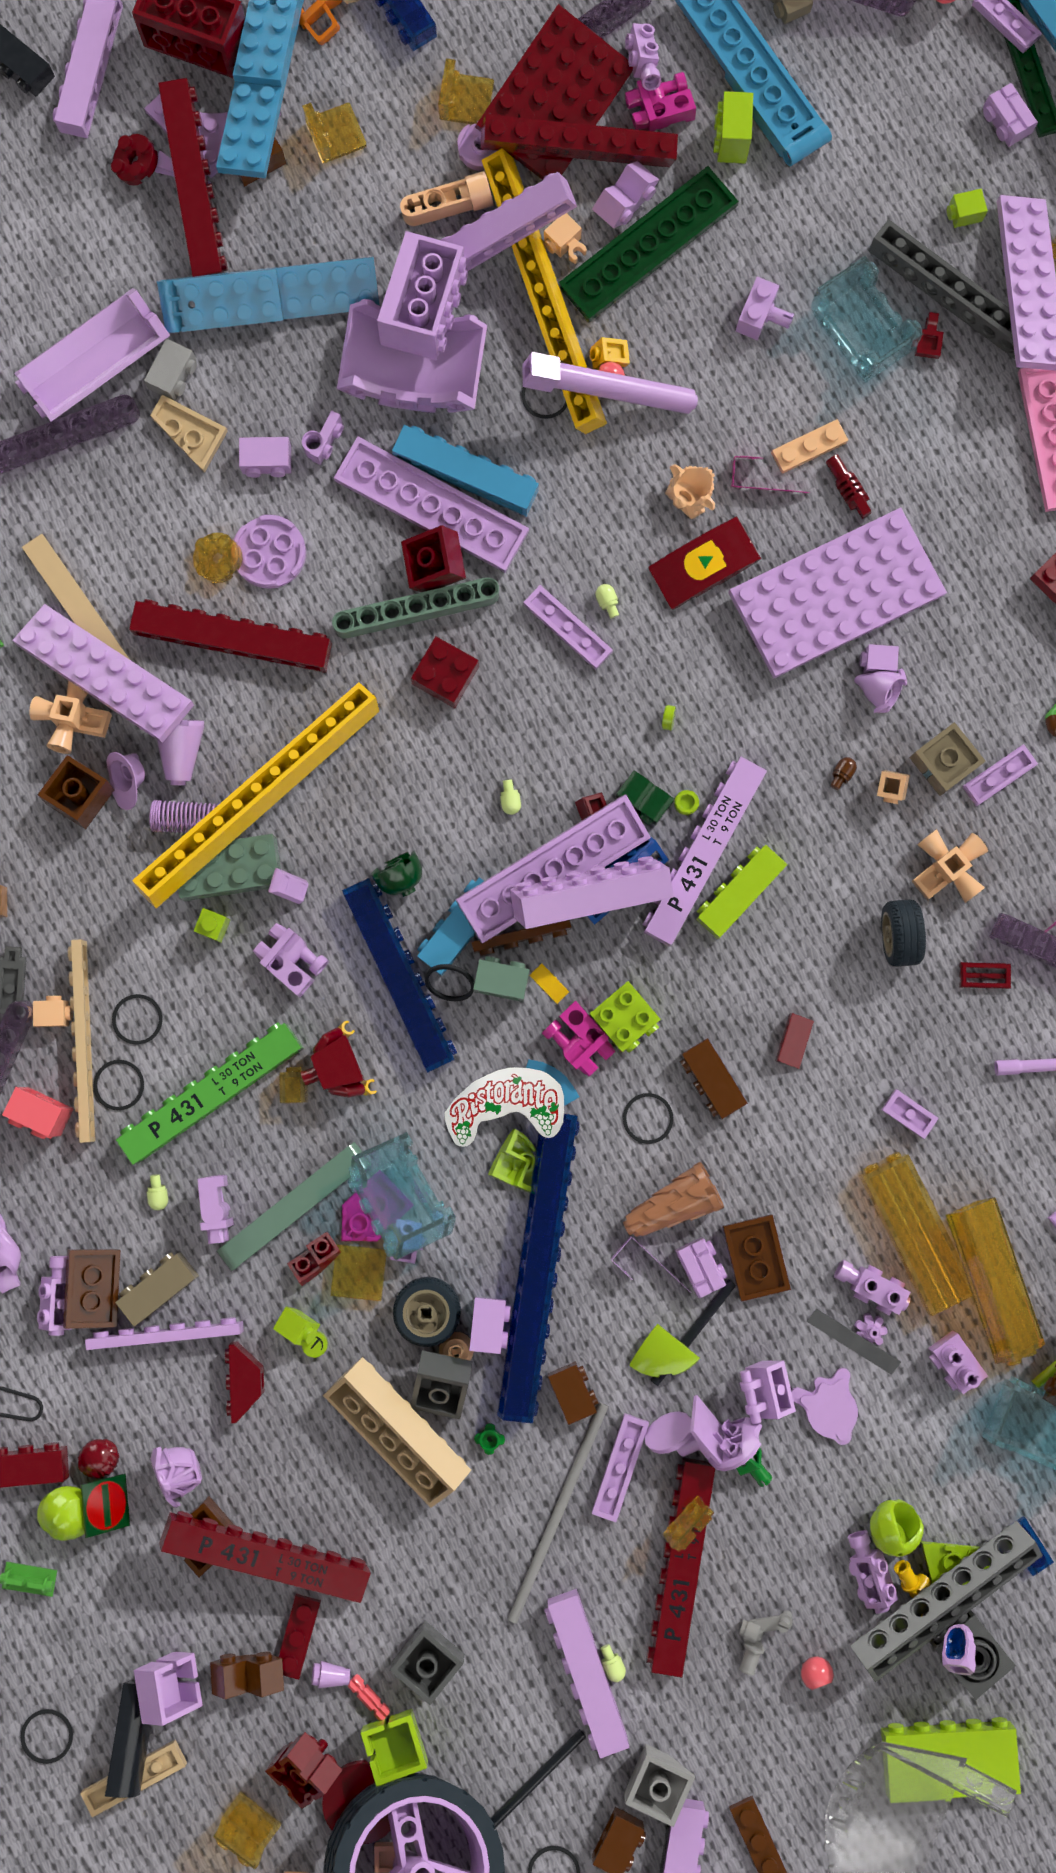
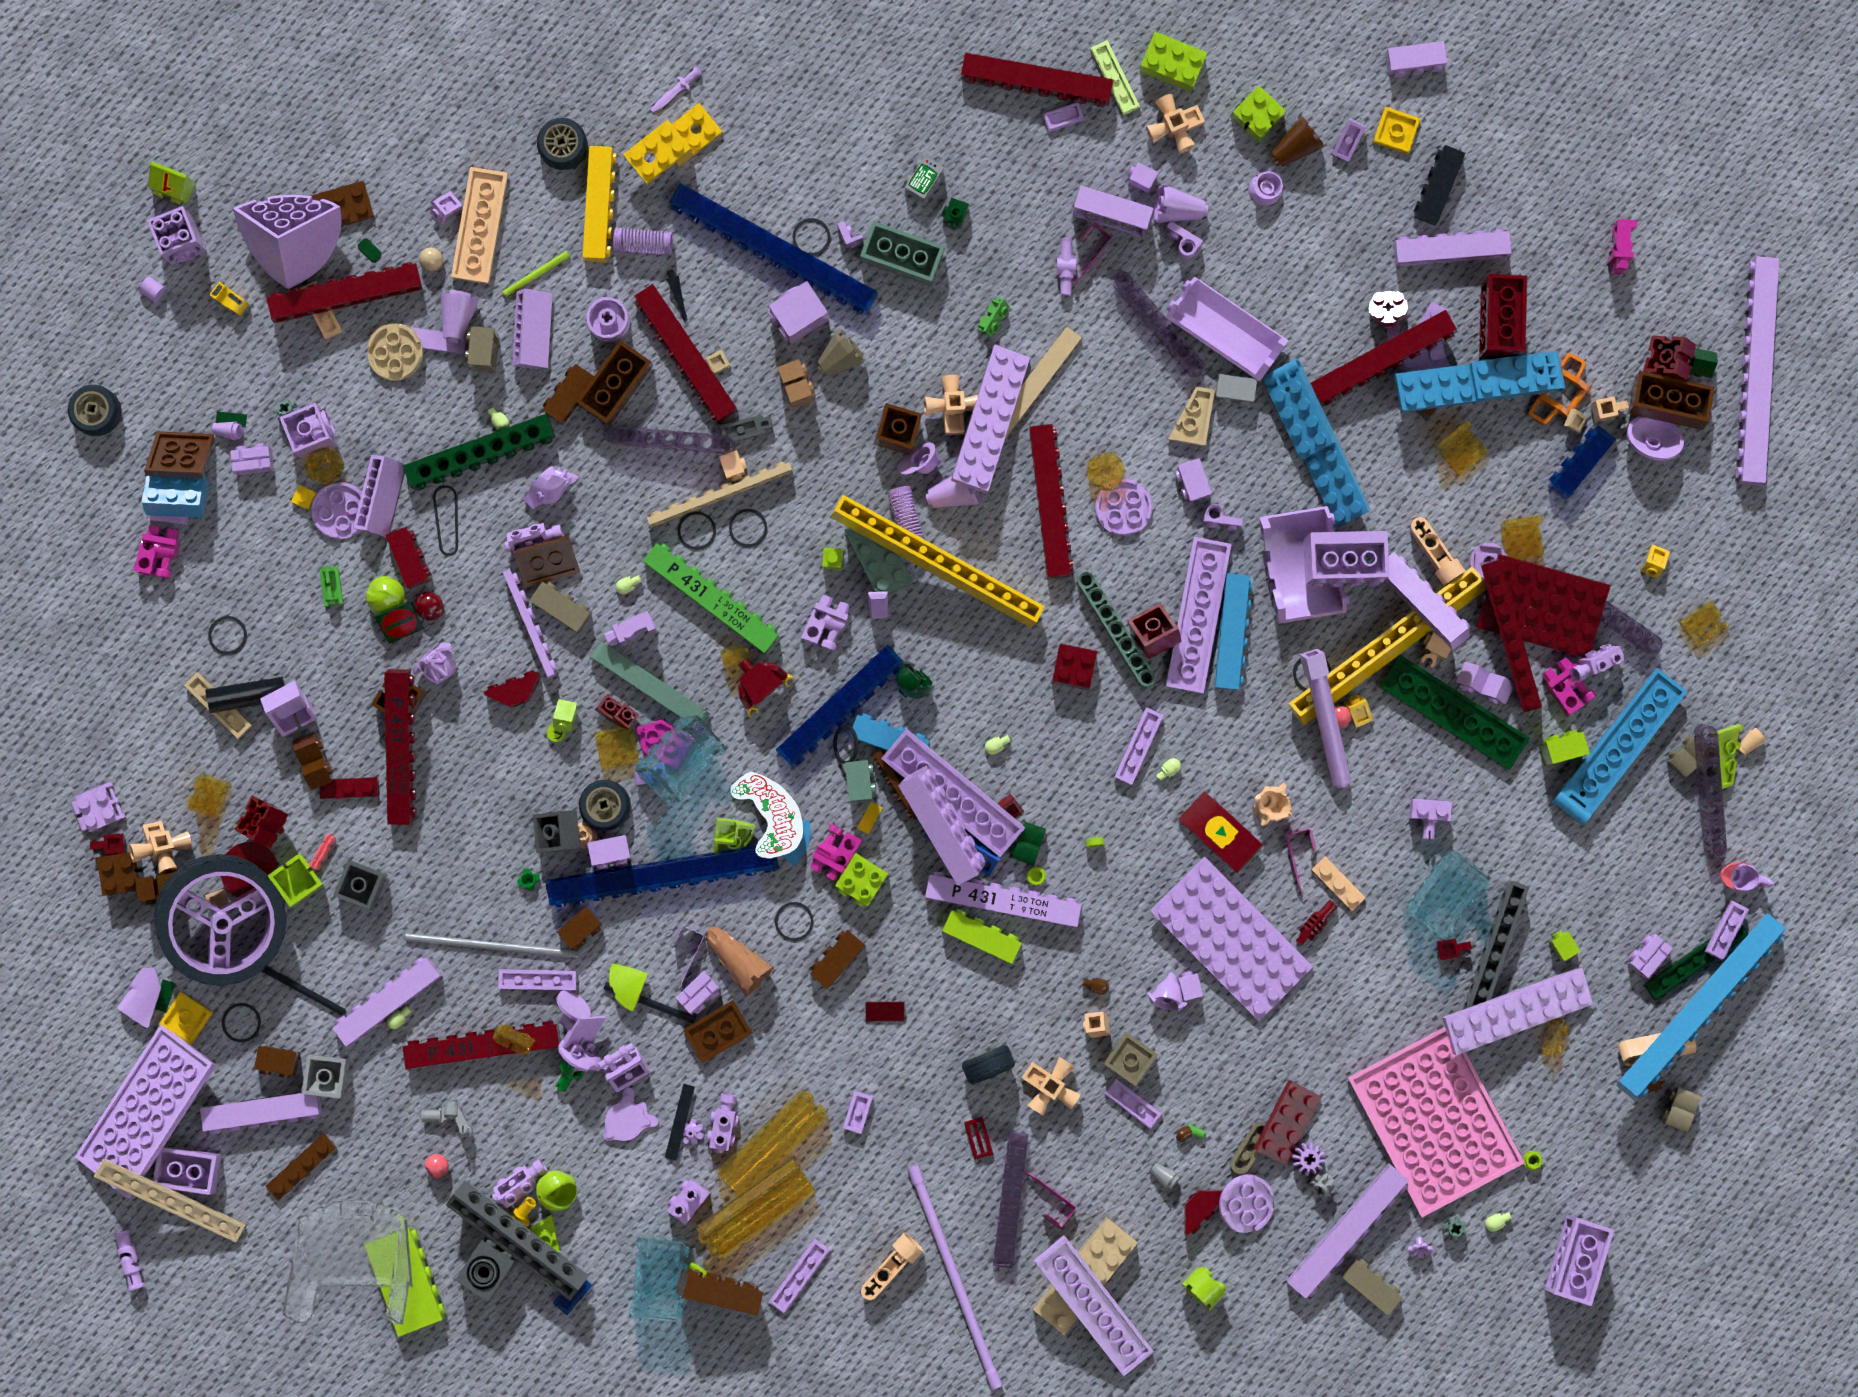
camera: 75 degrees right, 0 degrees up
(38, 1112) = (659, 481): coral brick -> none
(329, 1675) = (329, 818): lavender cone -> none
(397, 1432) = (513, 811): tan brick -> none
(959, 1650) = (486, 1255): lavender rock -> none

